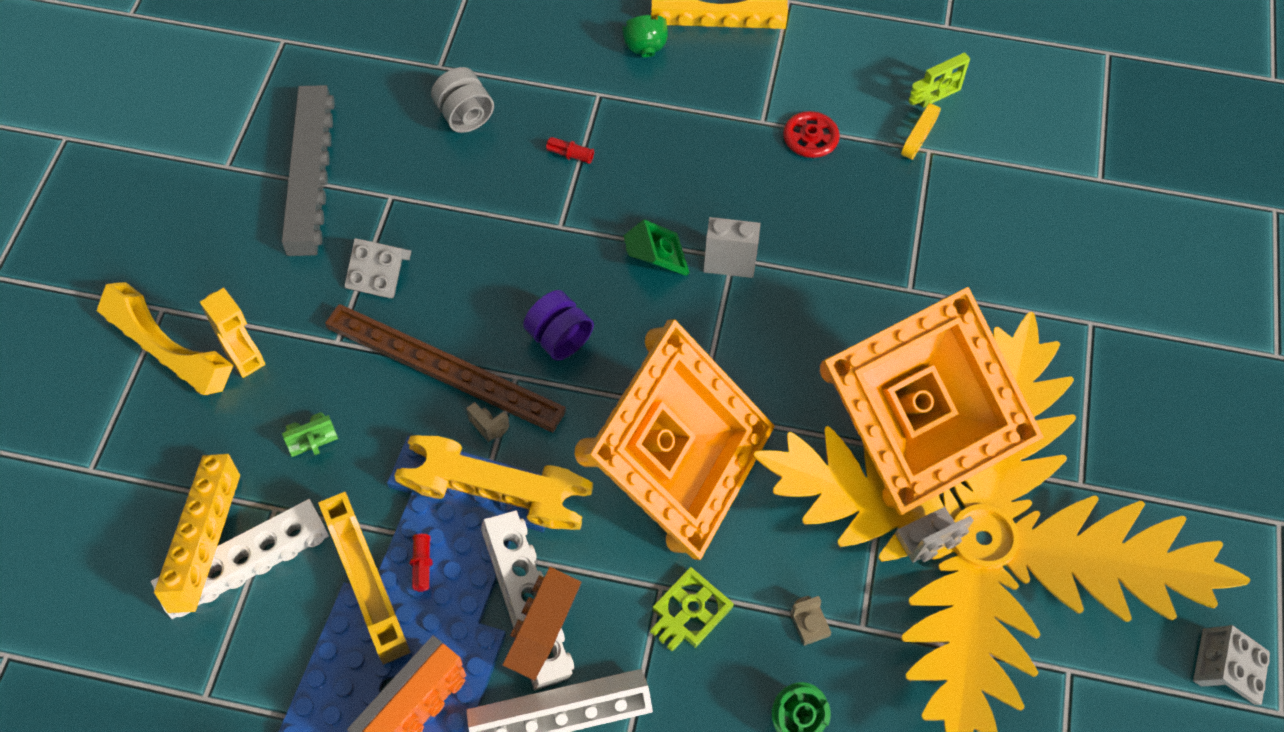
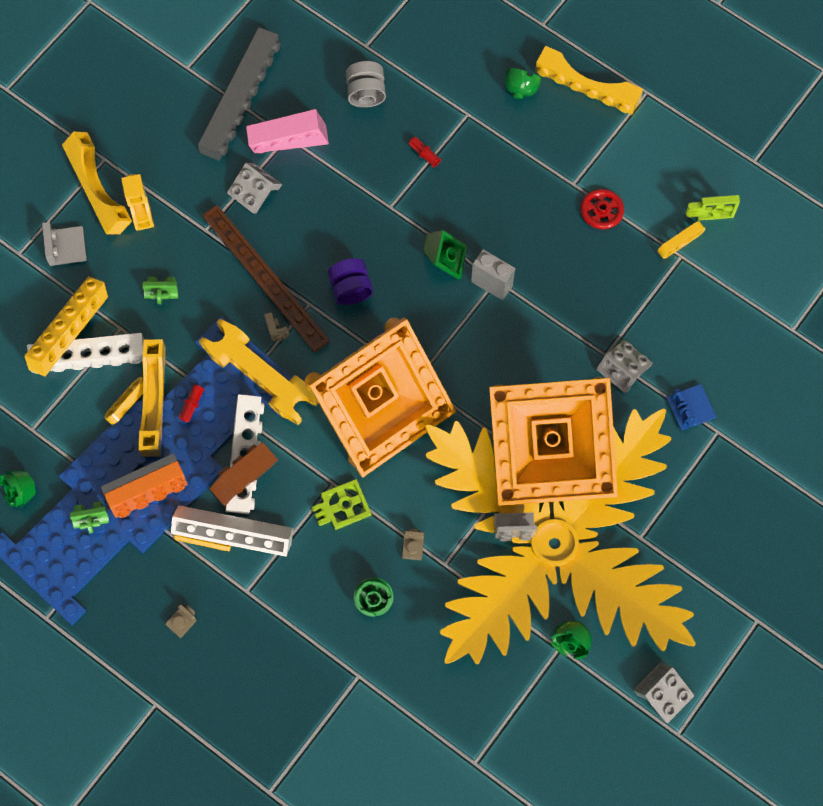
camera: 25 degrees right, 10 degrees up
(150, 432) = (64, 245): none -> light grey bracket
(325, 600) = (125, 401): none -> yellow beam
(391, 188) = (288, 132): none -> bright pink wedge
(936, 284) = (623, 365): none -> light grey bracket
(1048, 304) = (691, 407): none -> blue hinge
(1085, 648) = (572, 638): none -> green cylinder

